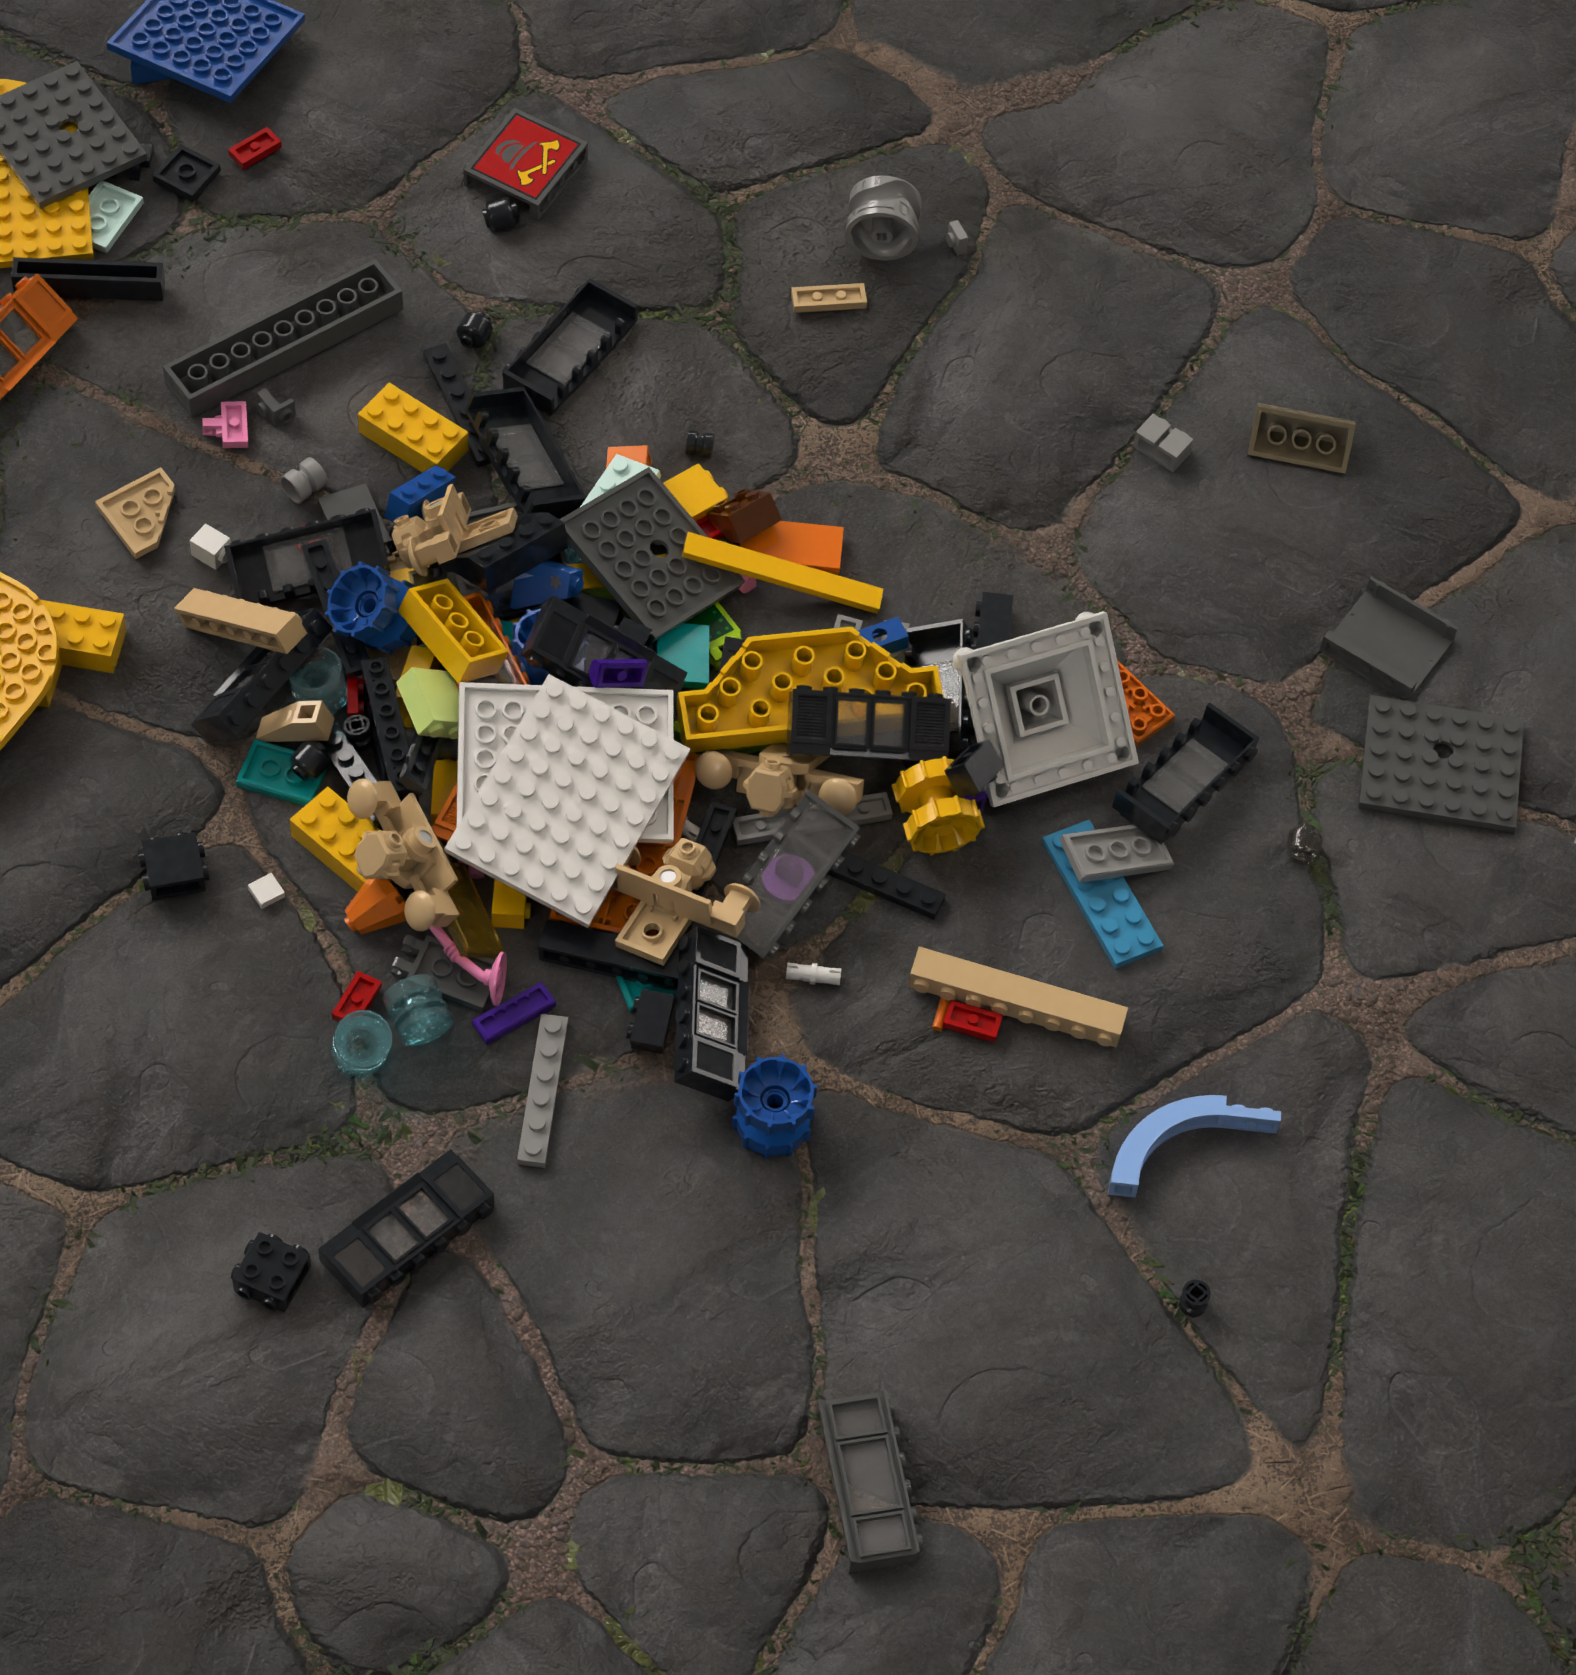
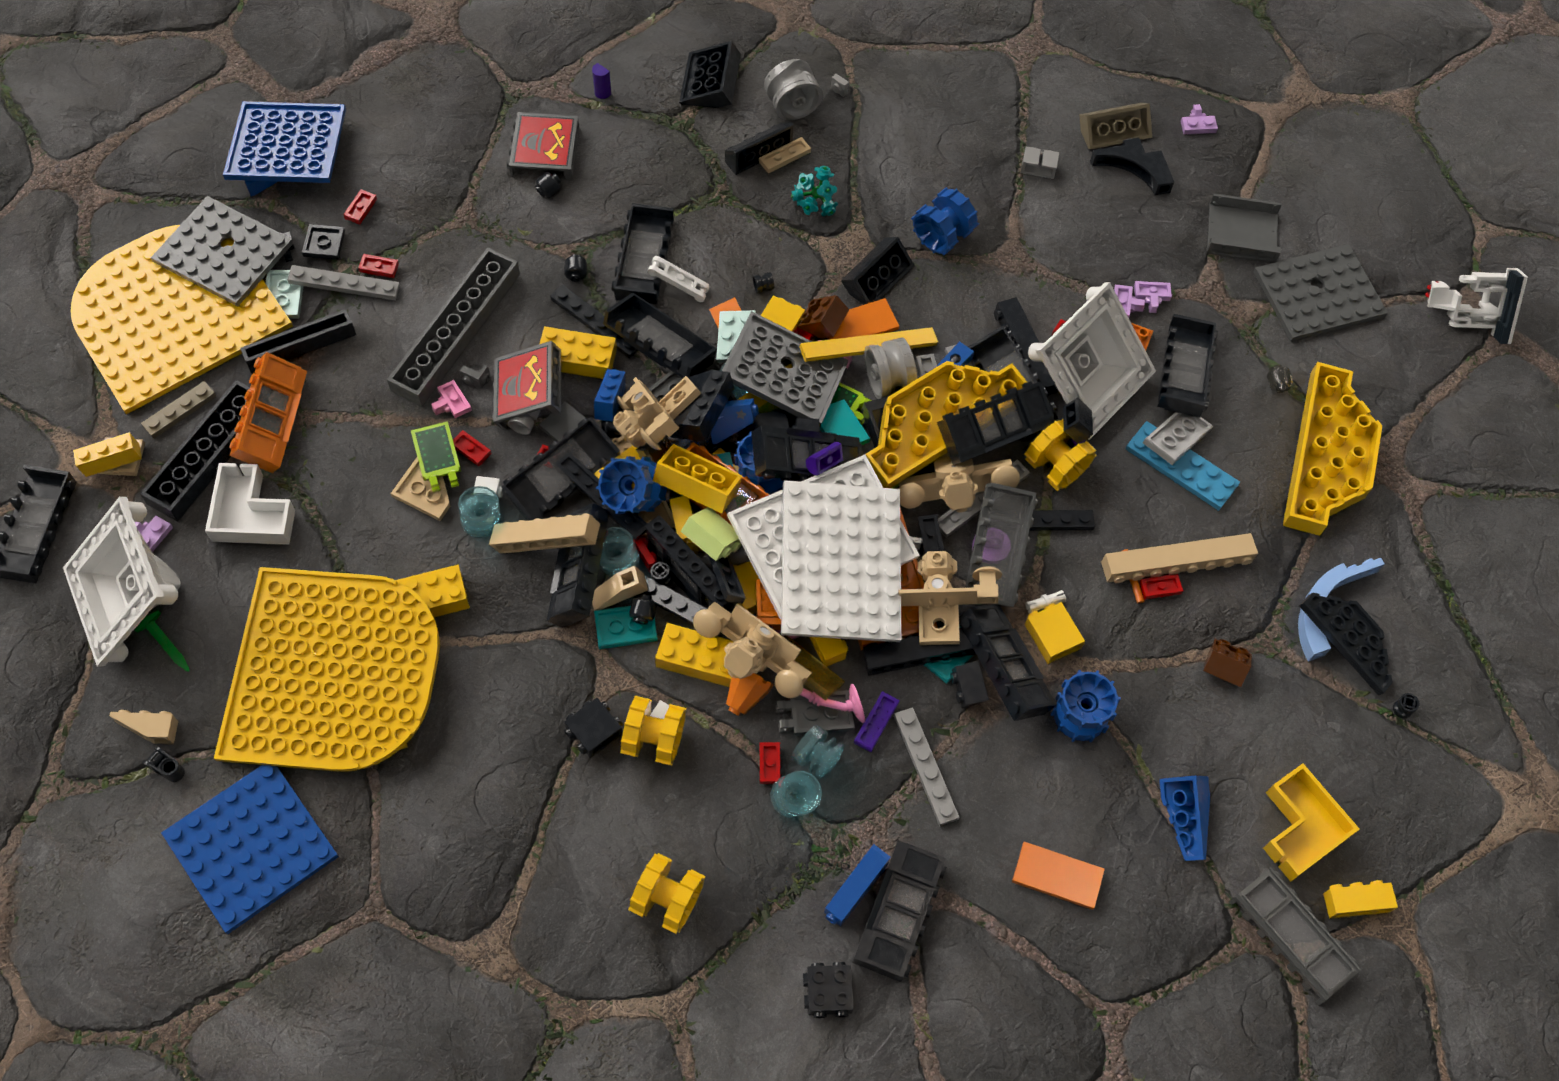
camera: 25 degrees left, 5 degrees up
(149, 1082) = (659, 889): none -> yellow piece
(173, 479) = (436, 454): none -> tile
(182, 232) = (343, 282): none -> light grey plate
(184, 564) = (479, 511): none -> clear light blue wheel
(220, 490) = (471, 448): none -> red plate
(235, 229) = (378, 266): none -> plate
(246, 903) = (642, 728): none -> yellow piece
(328, 439) = (527, 382): none -> panel
(371, 1175) = (857, 885): none -> blue slope
(592, 394) = (678, 278): none -> white plate
(622, 1280) = (1058, 875): none -> orange tile
(643, 110) = (601, 81): none -> dark purple brick
(777, 275) = (750, 150): none -> black slope
(787, 605) = (889, 366): none -> light grey piece
(794, 160) = (711, 76): none -> black slope
(798, 1012) = (1054, 632): none -> yellow brick
(836, 1275) = (1188, 808): none -> blue wedge
(842, 361) = (823, 191): none -> teal plant
(857, 491) = (878, 271): none -> black slope
(972, 1379) = (1316, 822): none -> yellow piece
(977, 1482) = (1360, 899): none -> yellow brick
(991, 459) = (949, 218): none -> blue piece
(997, 1144) = (1228, 662): none -> reddish brown slope
(1161, 664) = (1128, 301): none -> lavender hinge
(1179, 1183) = (1353, 635): none -> black plate
(1205, 668) = (1152, 293): none -> lavender hinge
(1294, 487) = (1131, 157): none -> black arch
(1308, 962) = (1333, 451): none -> yellow brick
(1423, 480) = (1198, 122): none -> lavender hinge

